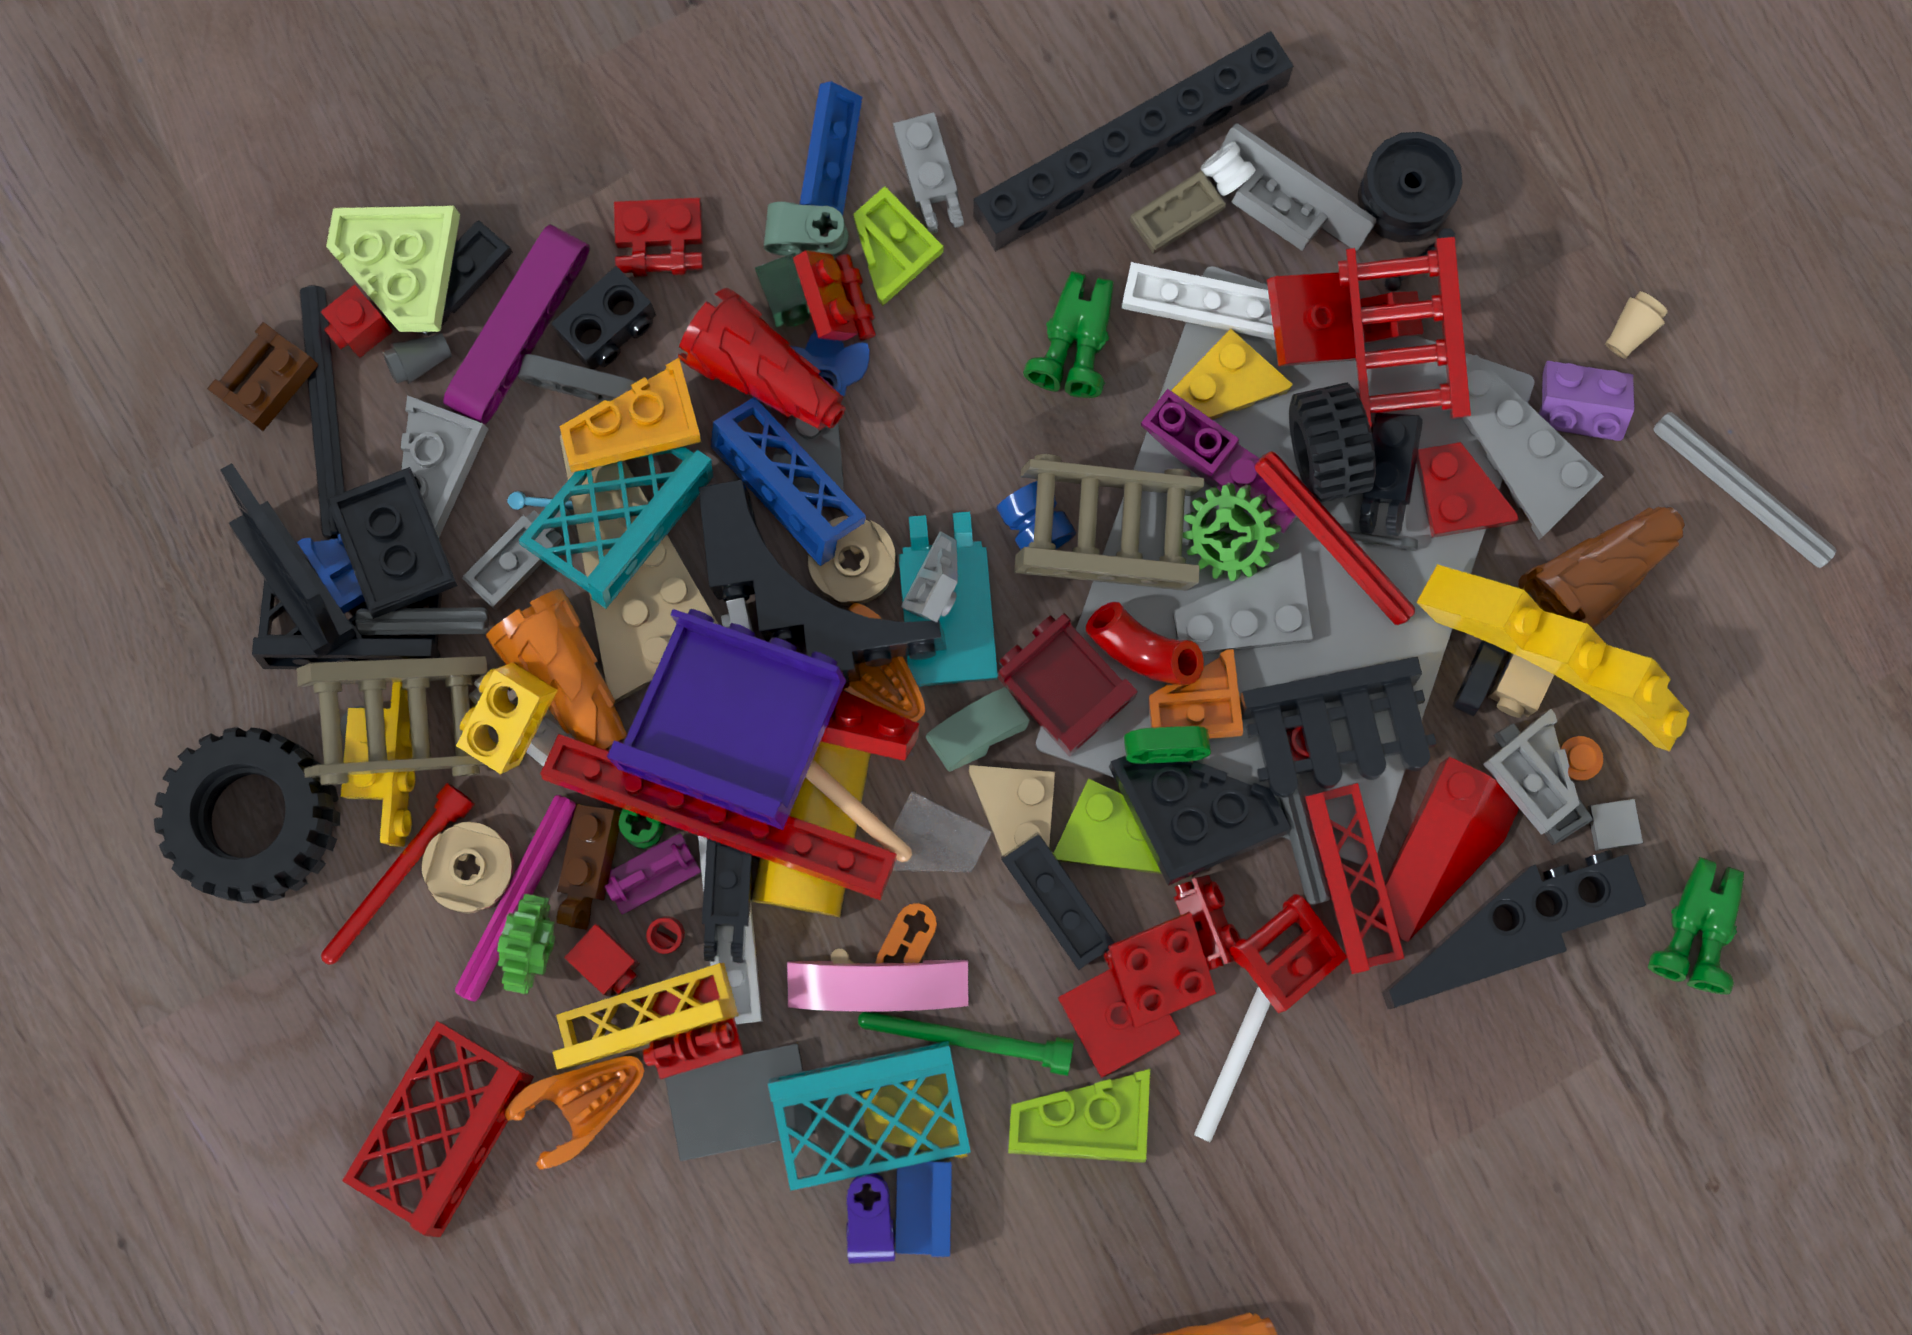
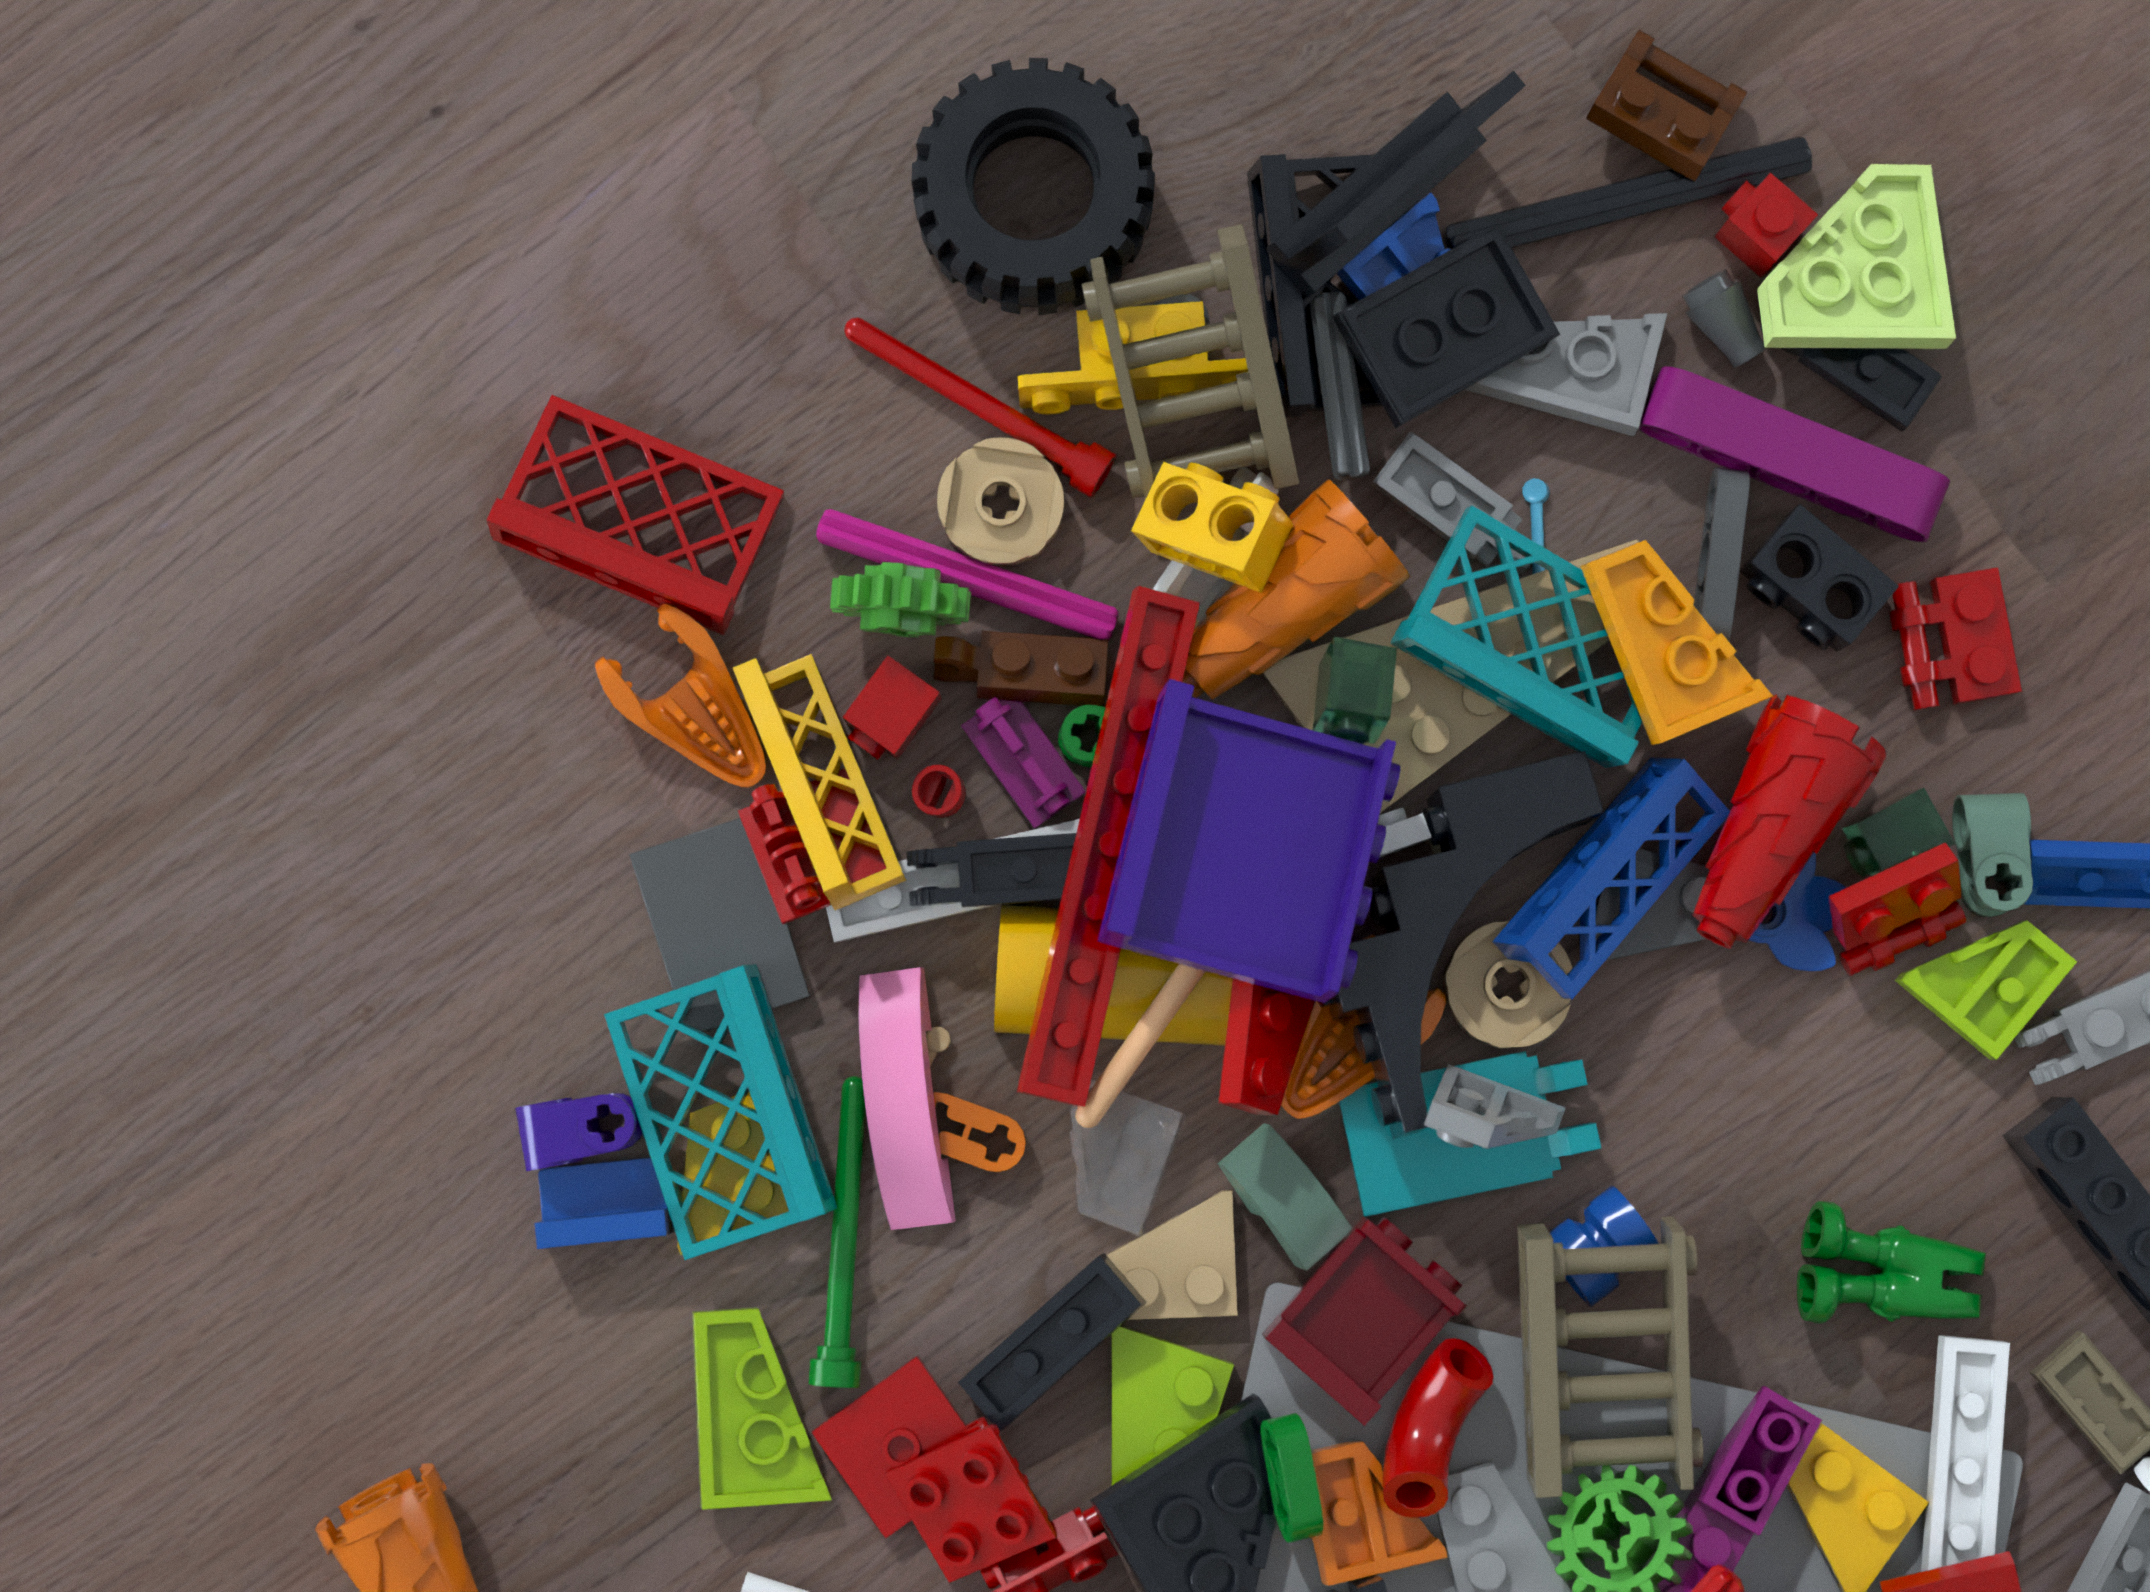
camera: 80 degrees right, 5 degrees up
(634, 635) = (1354, 690): none -> clear green brick

